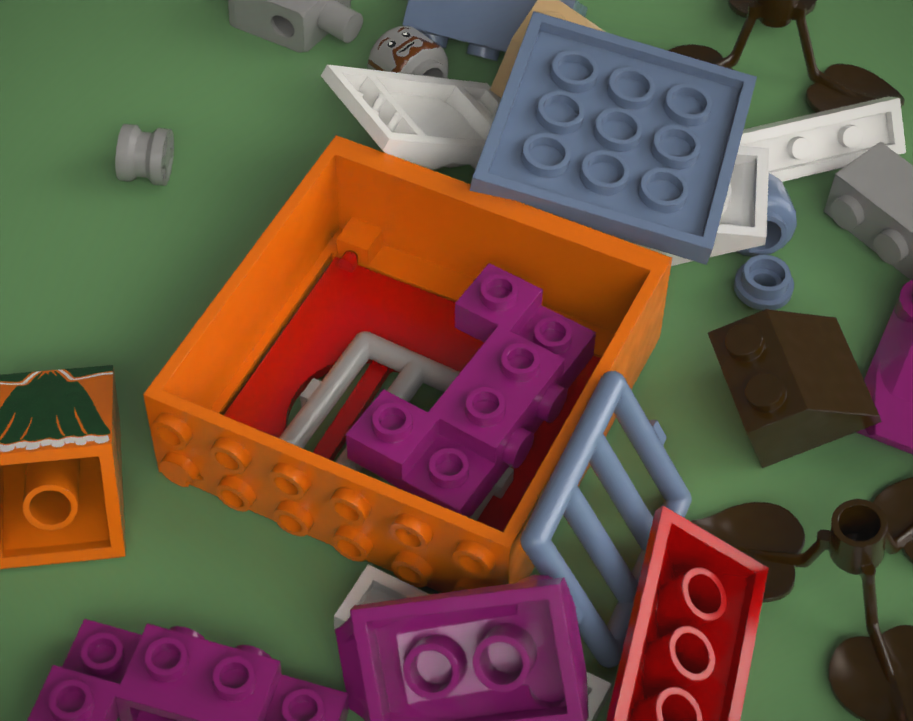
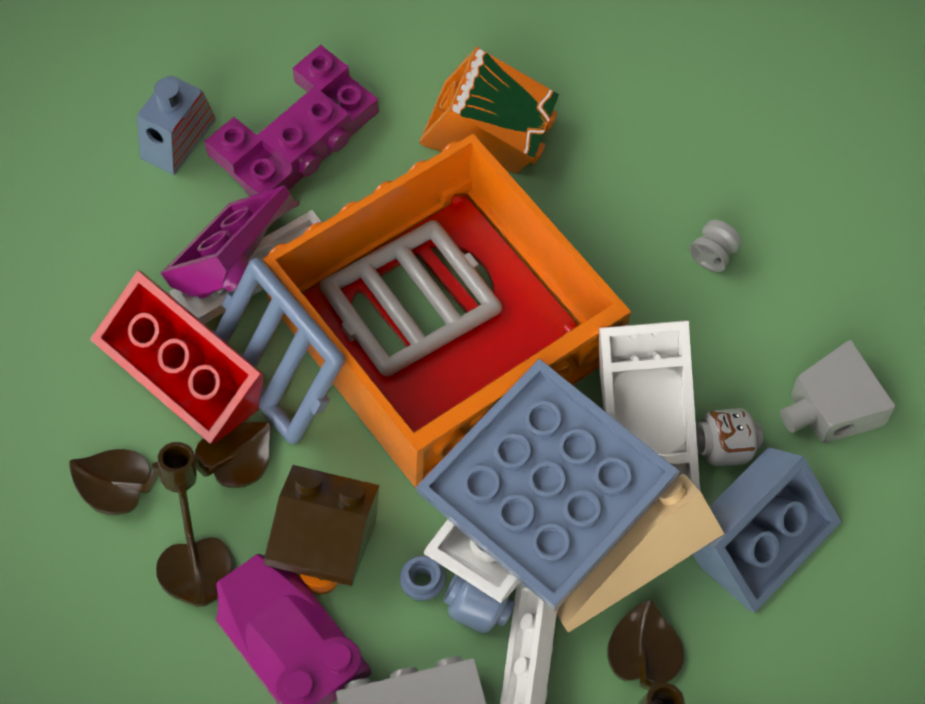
camera: 120 degrees right, 10 degrees up
(489, 408) = (387, 330): magenta bracket -> none

